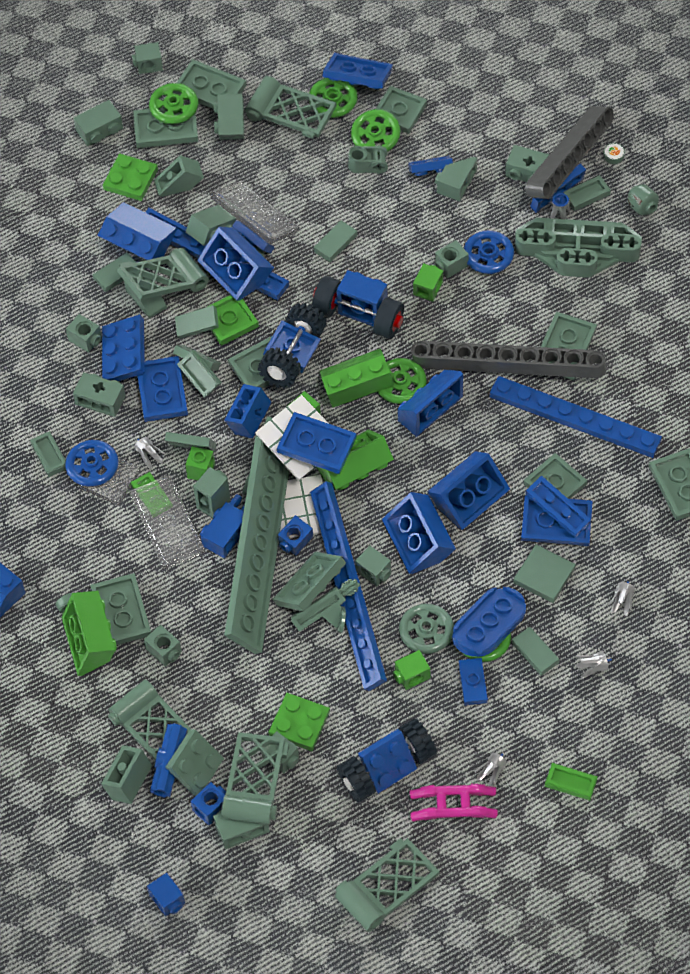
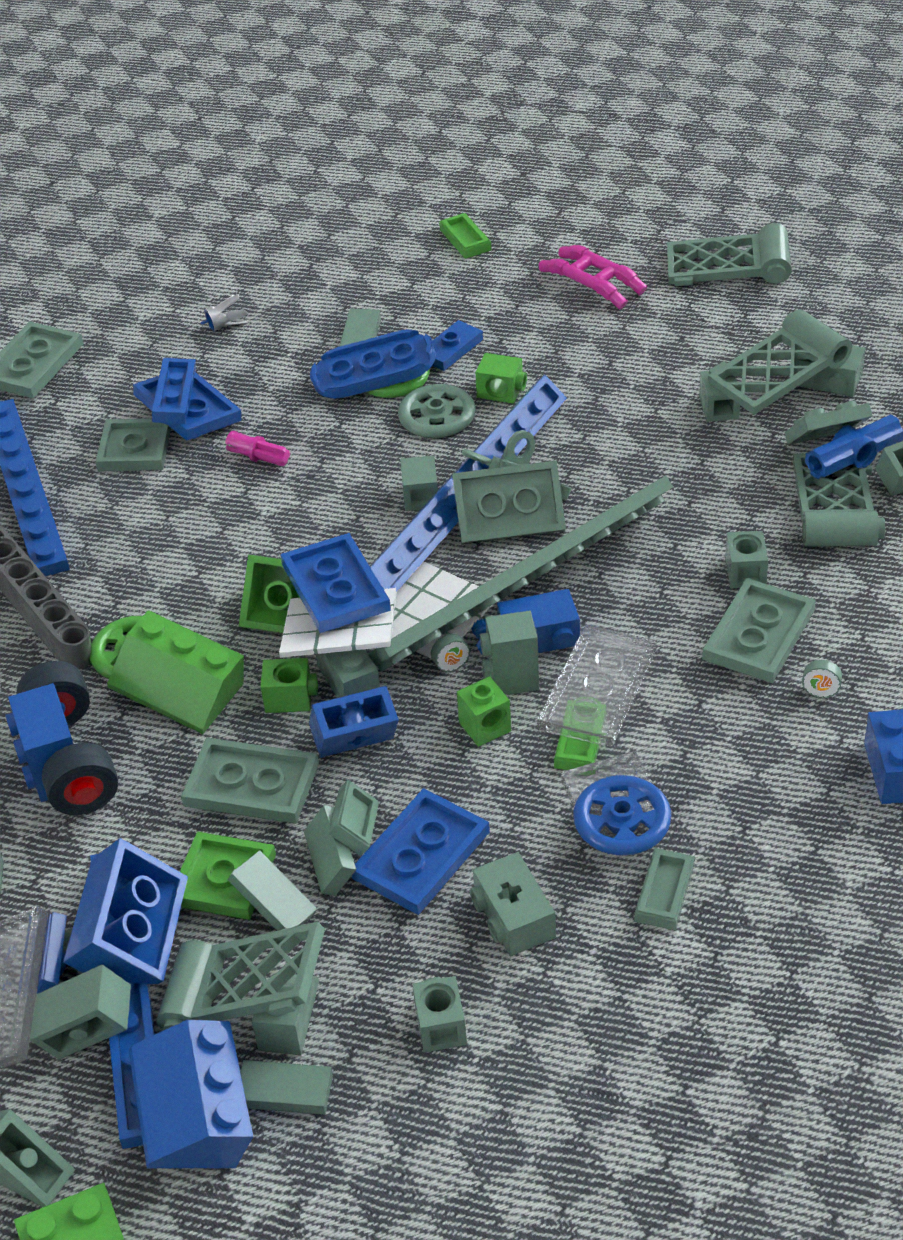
camera: 135 degrees left, 15 degrees down
(88, 631) = (831, 611): bright green slope -> none
(123, 349) = (411, 938): blue plate -> none
(144, 447) = (527, 790): flat silver piece -> none
(188, 441) = (469, 730): sand green tile -> none
(204, 810) = (841, 389): blue brick -> none
(292, 345) = (204, 744): plate -> none
(298, 527) = (467, 561): blue brick -> none
(300, 721) = (666, 416): bright green plate -> none
(387, 760) = (620, 314): plate -> none
(418, 533) = (333, 480): blue slope -> none
(431, 401) = (138, 575): blue slope -> none
(469, 489) = (225, 486): blue slope -> none
(485, 526) = (257, 448): none -> dark pink axle
(496, 763) = (517, 277): flat silver piece -> none
(544, 573) = (262, 381): sand green tile -> none
(597, 661) = (318, 286): flat silver piece -> none

